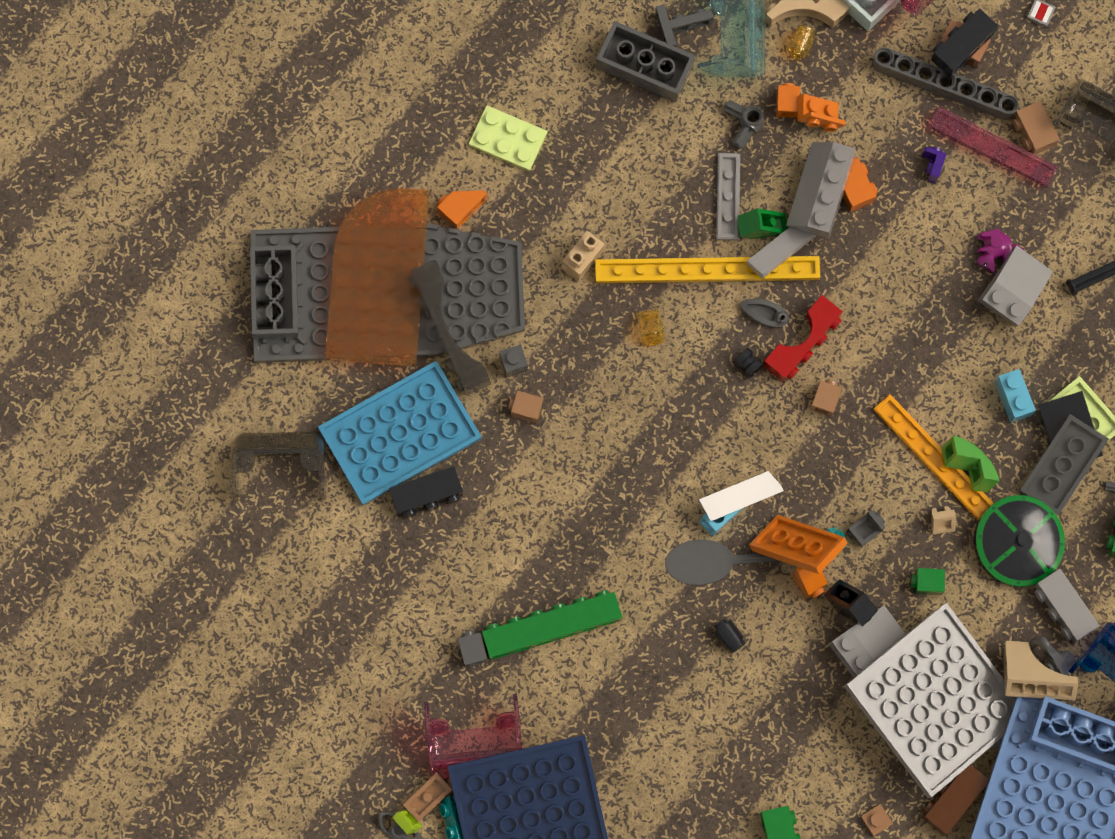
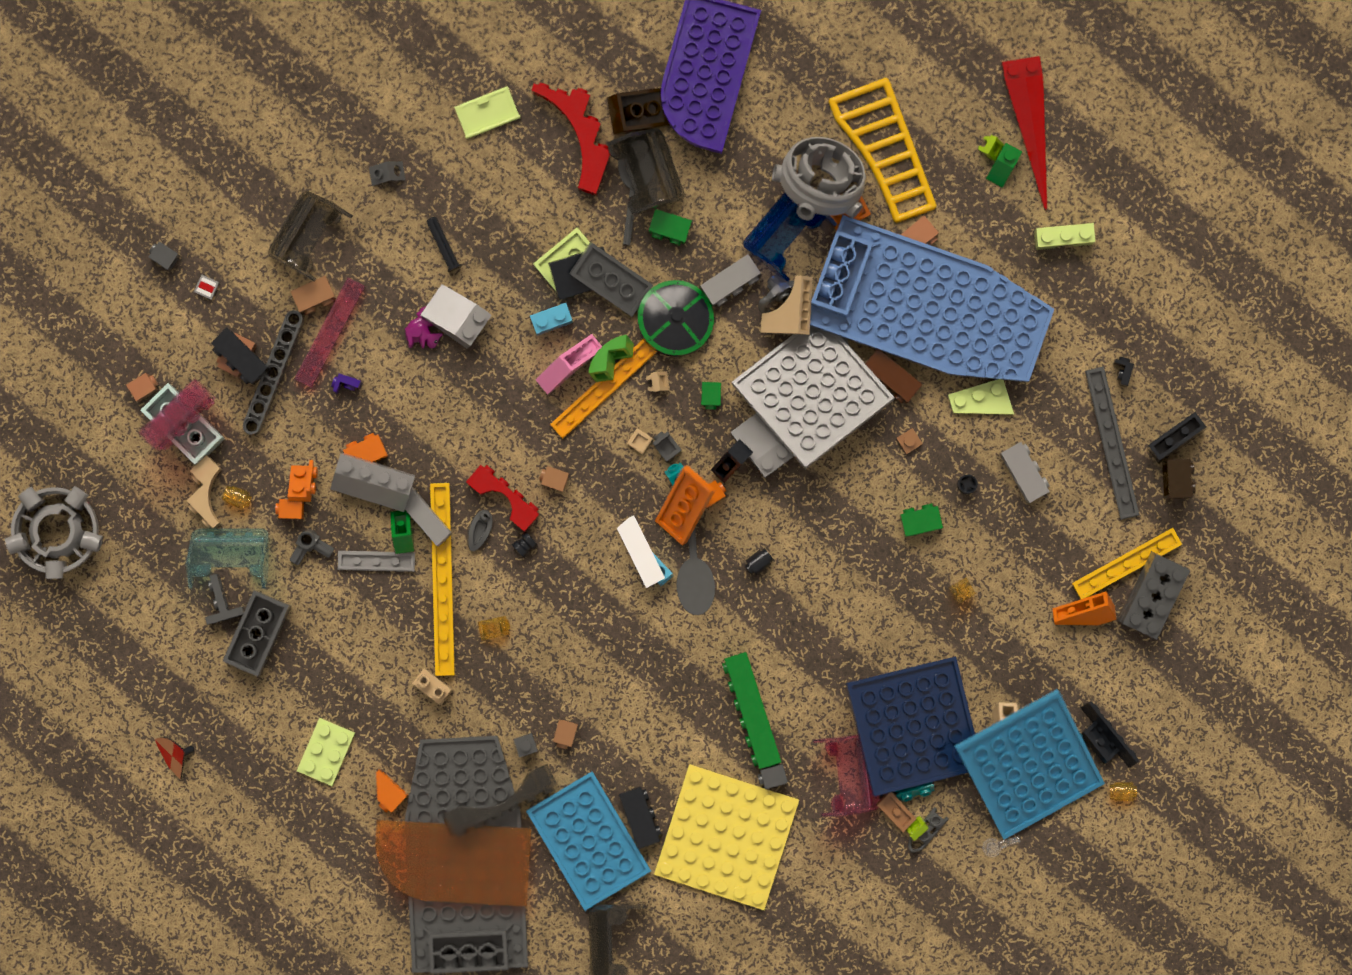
camera: 85 degrees left, 10 degrees up
(400, 594) = (726, 837): none -> light yellow plate
(871, 498) = (639, 441): none -> tan tile
(963, 412) = (568, 364): none -> bright pink arch

